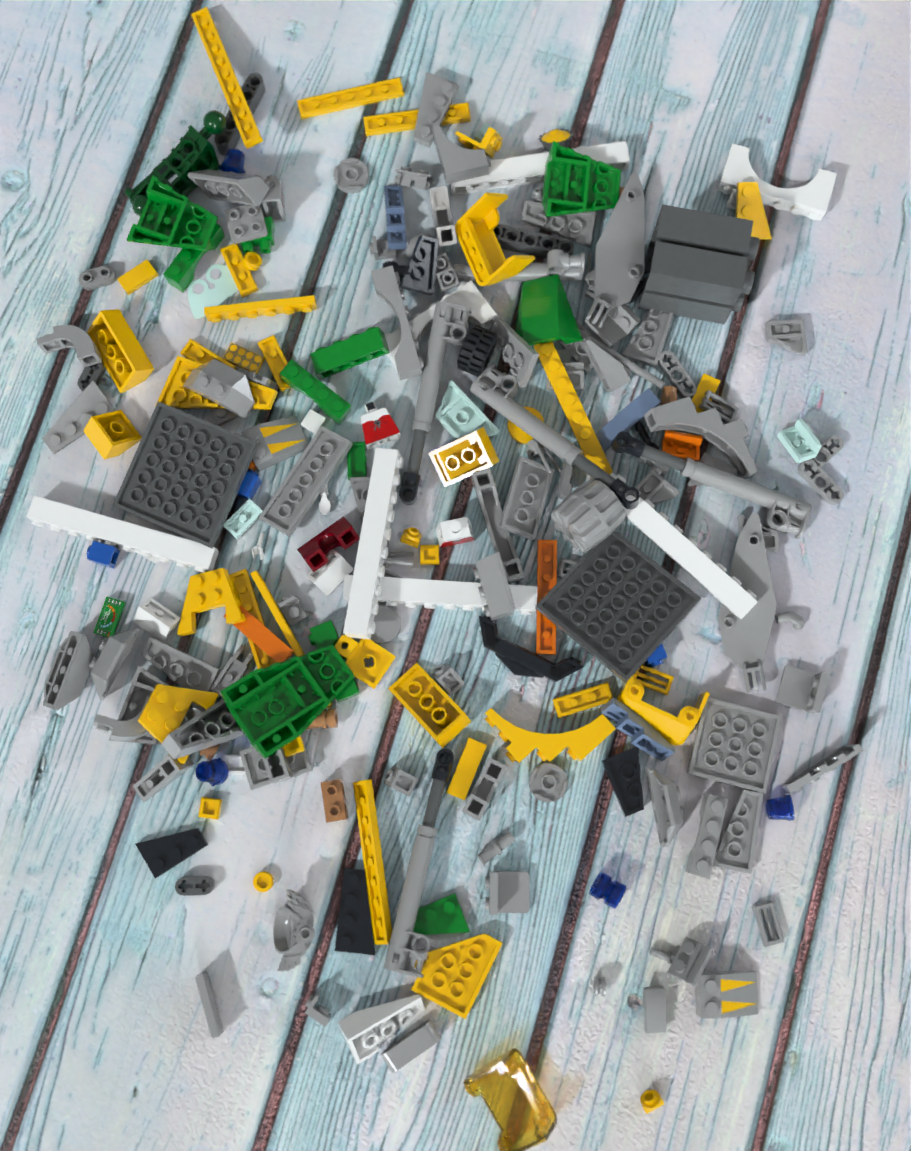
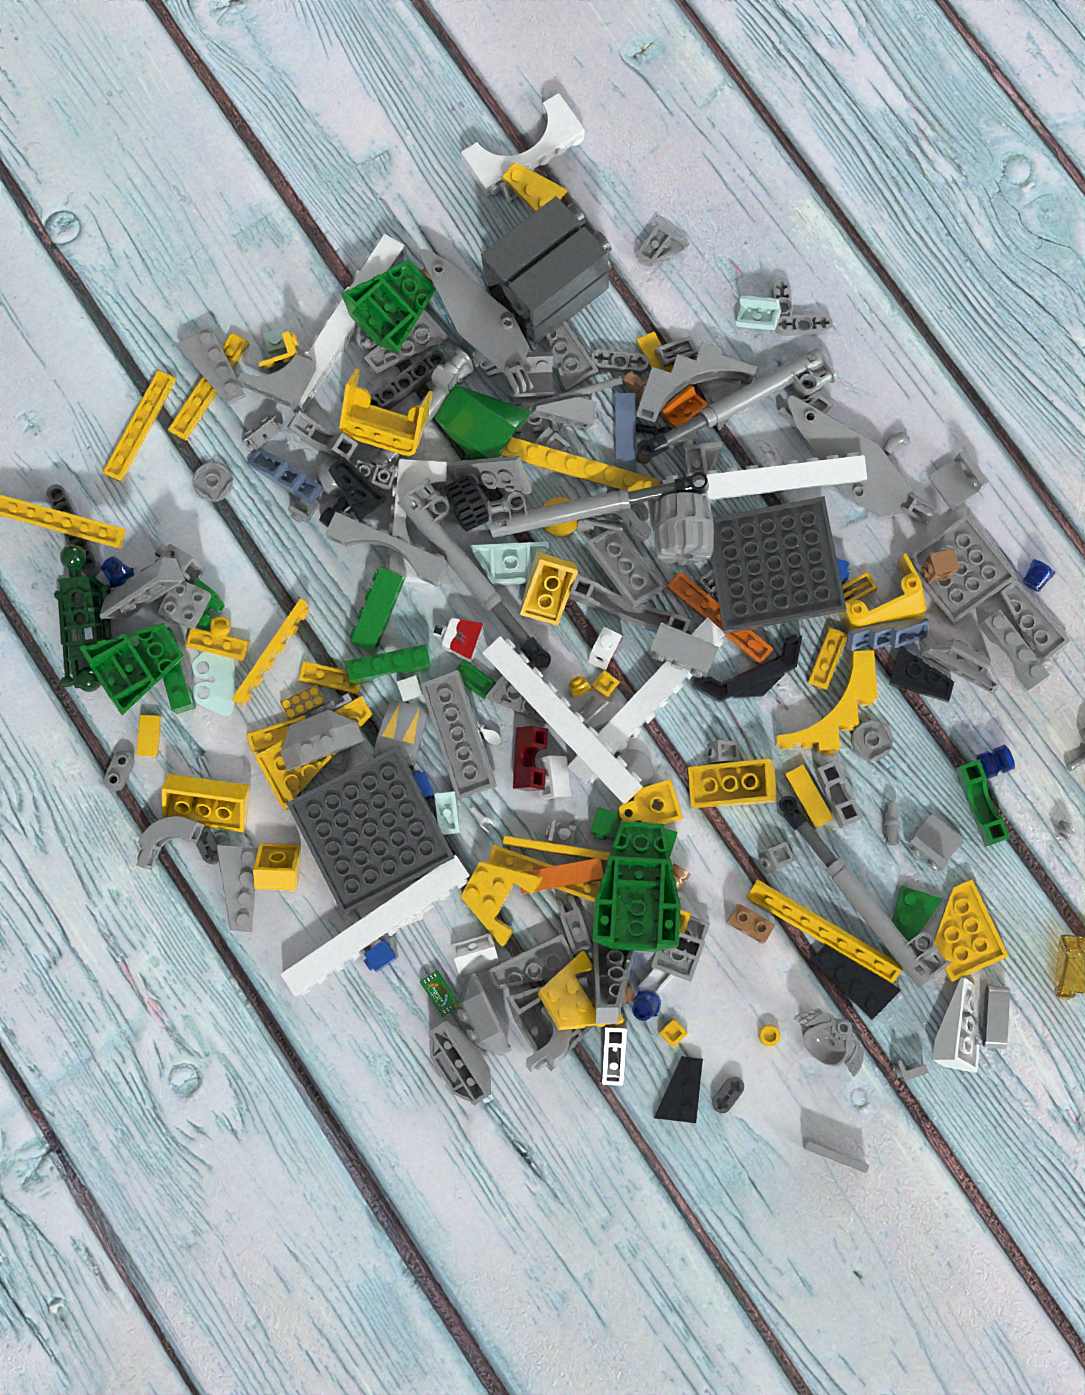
camera: 50 degrees left, 0 degrees up
(560, 136) = (331, 287): yellow piece -> none
(565, 905) = (974, 785): none -> green arch
(721, 726) = (940, 566): none -> medium nougat brick
(825, 766) = (1032, 514): light grey wing -> none

